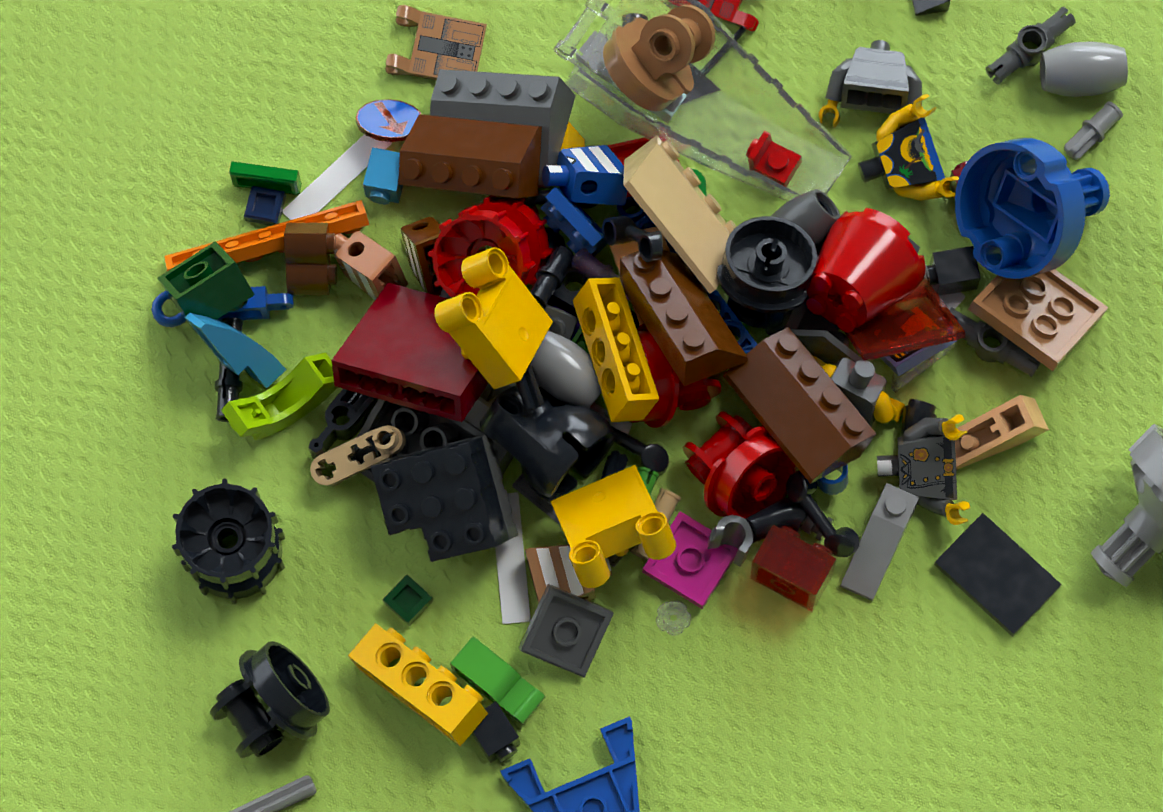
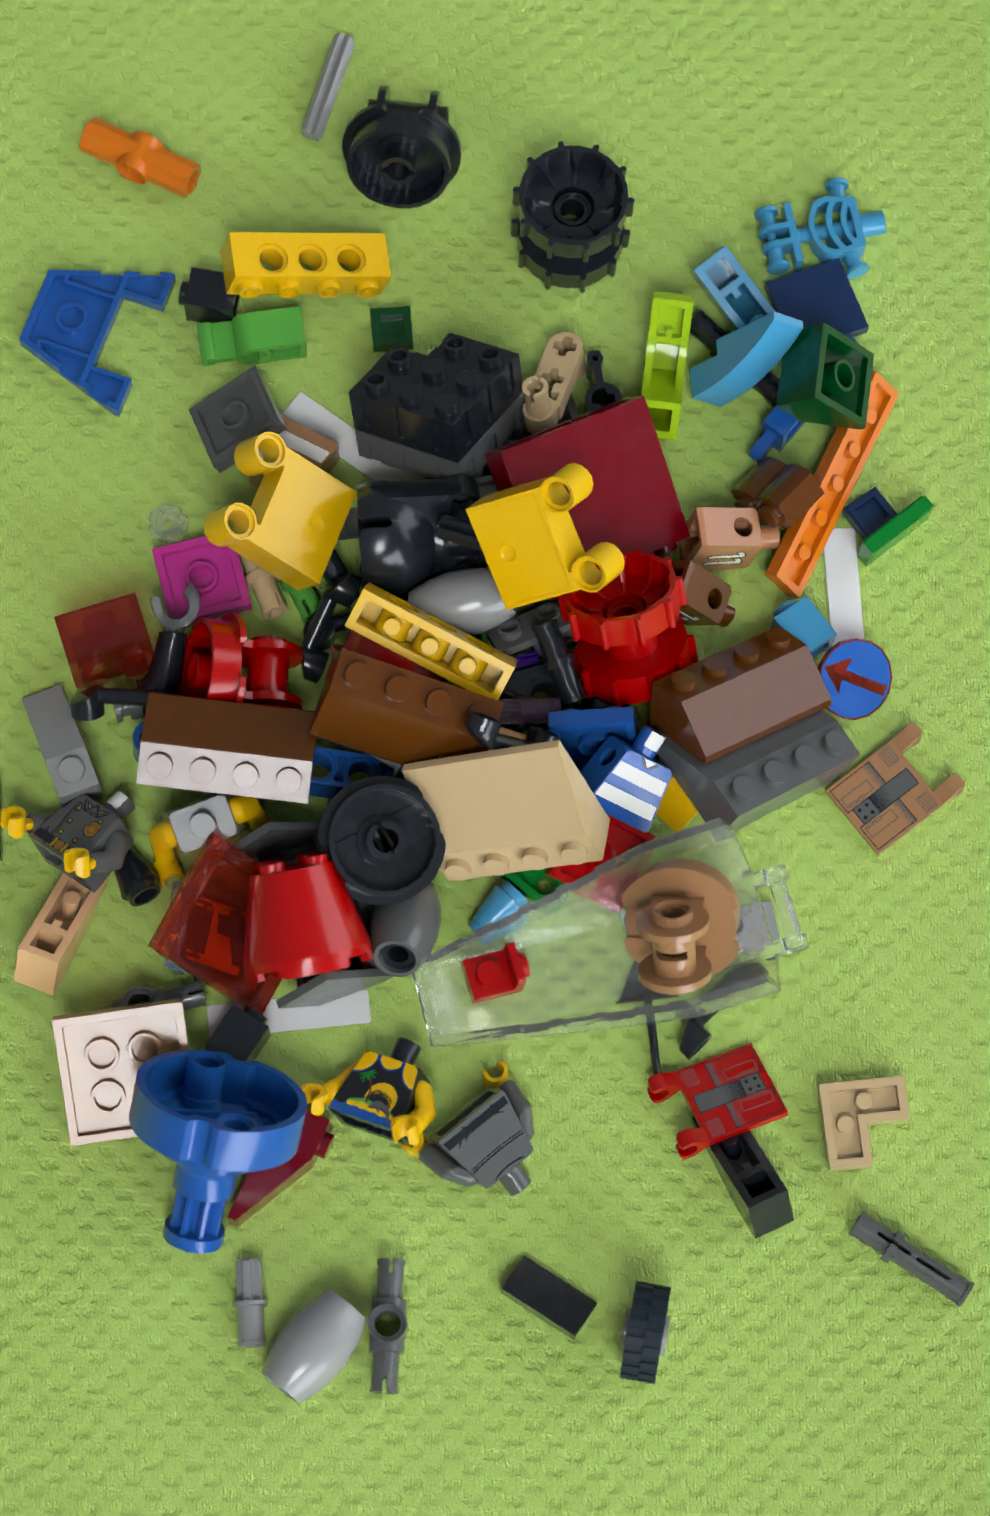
camera: 125 degrees right, 0 degrees up
(69, 392) = (850, 230): none -> dark azure piece
(146, 356) = (818, 297): none -> dark blue tile
(189, 397) = (730, 288): none -> dark azure slope
(623, 454) = (342, 592): none -> black bar
(733, 196) = (498, 905): none -> dark azure cone

